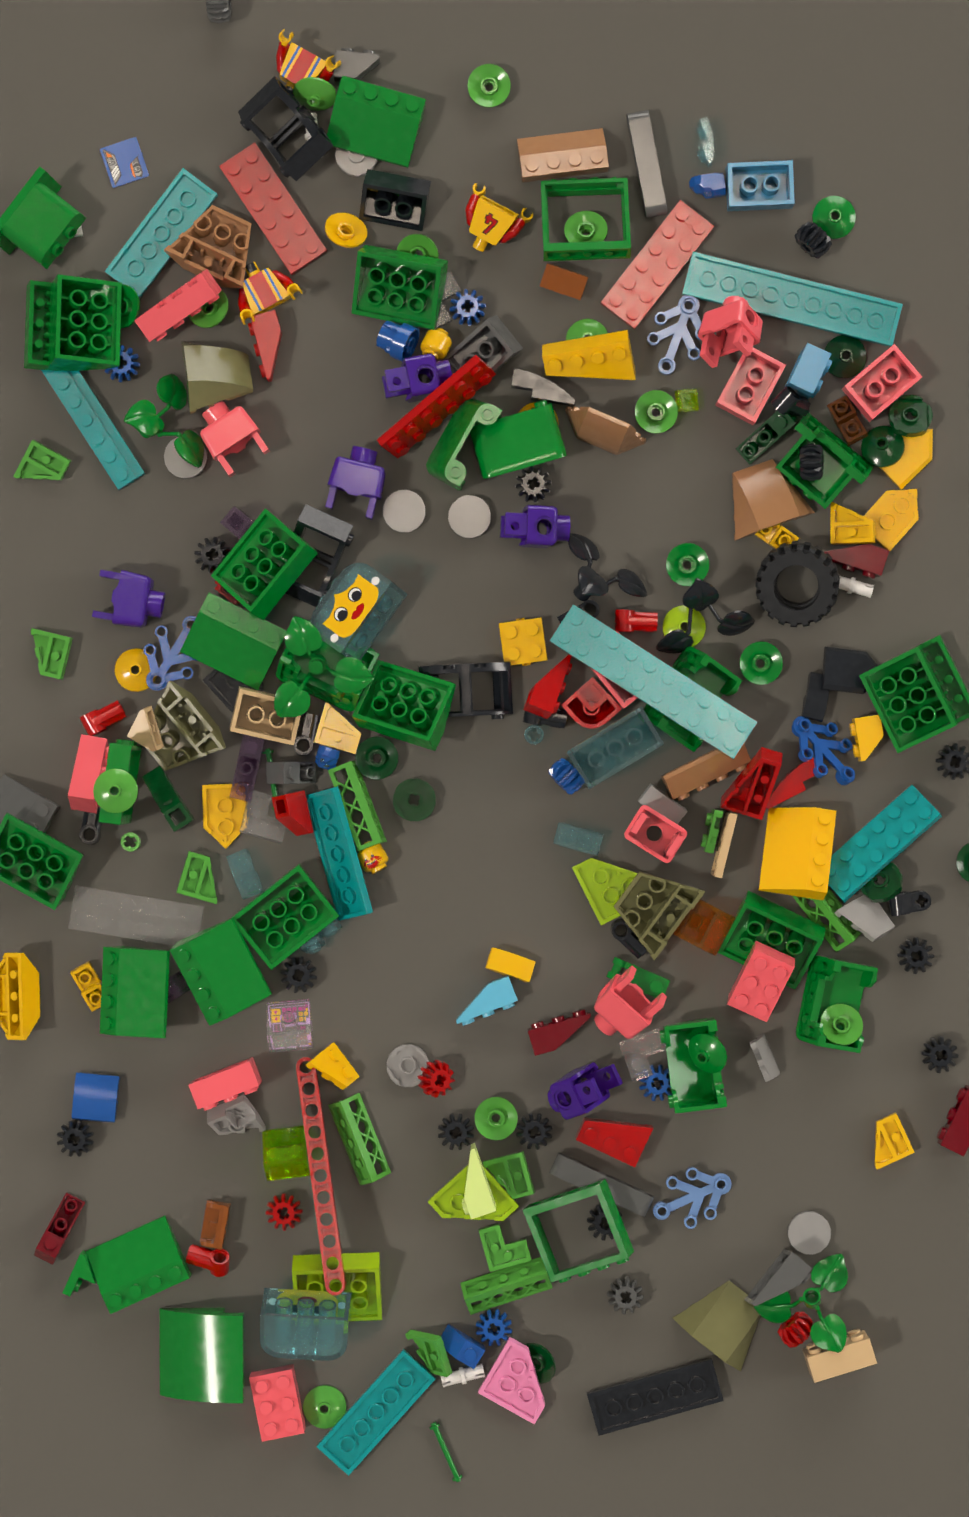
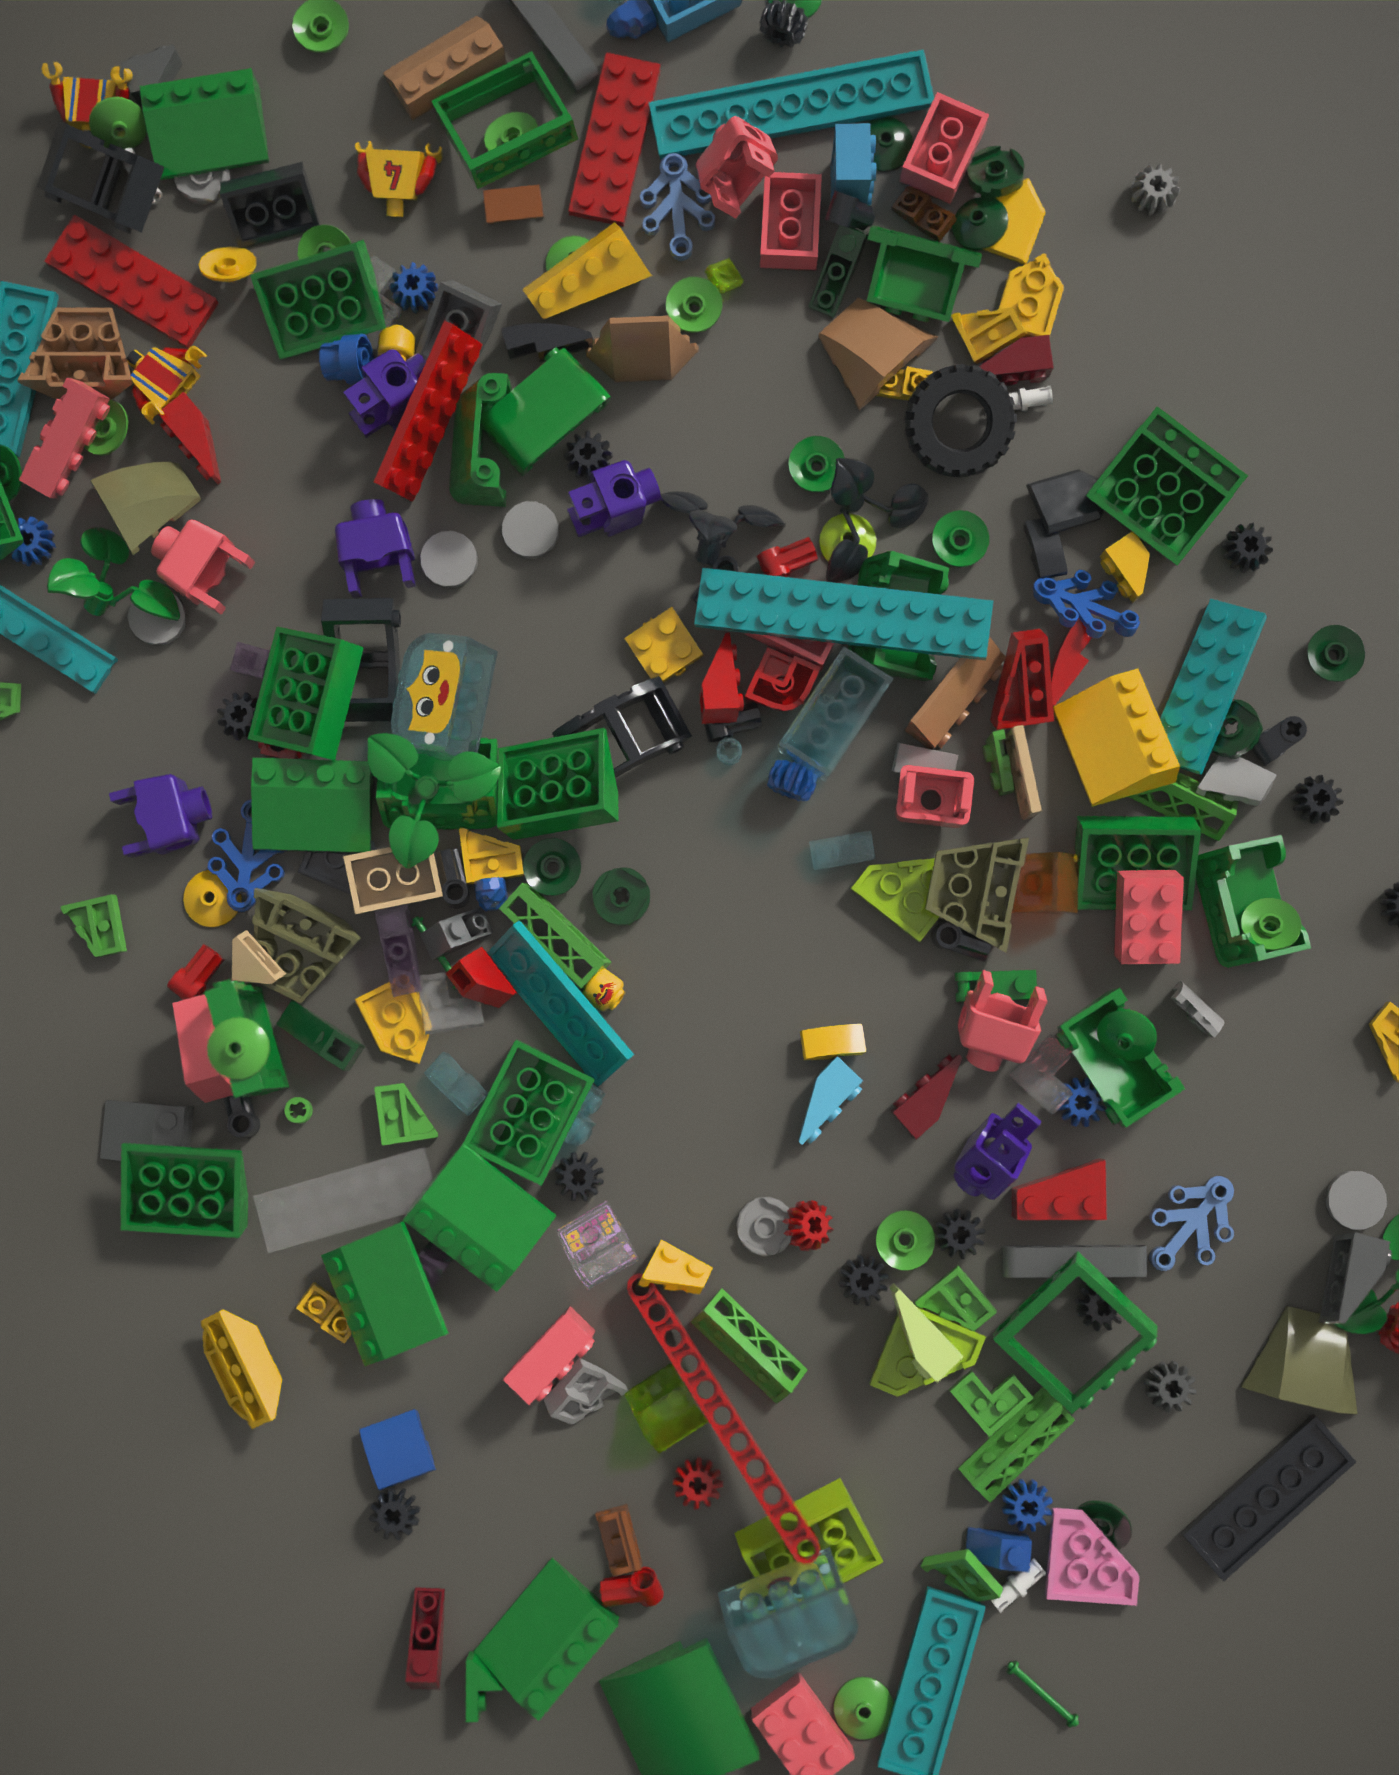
camera: 20 degrees left, 5 degrees down
(811, 462) = (906, 274): black gear -> none

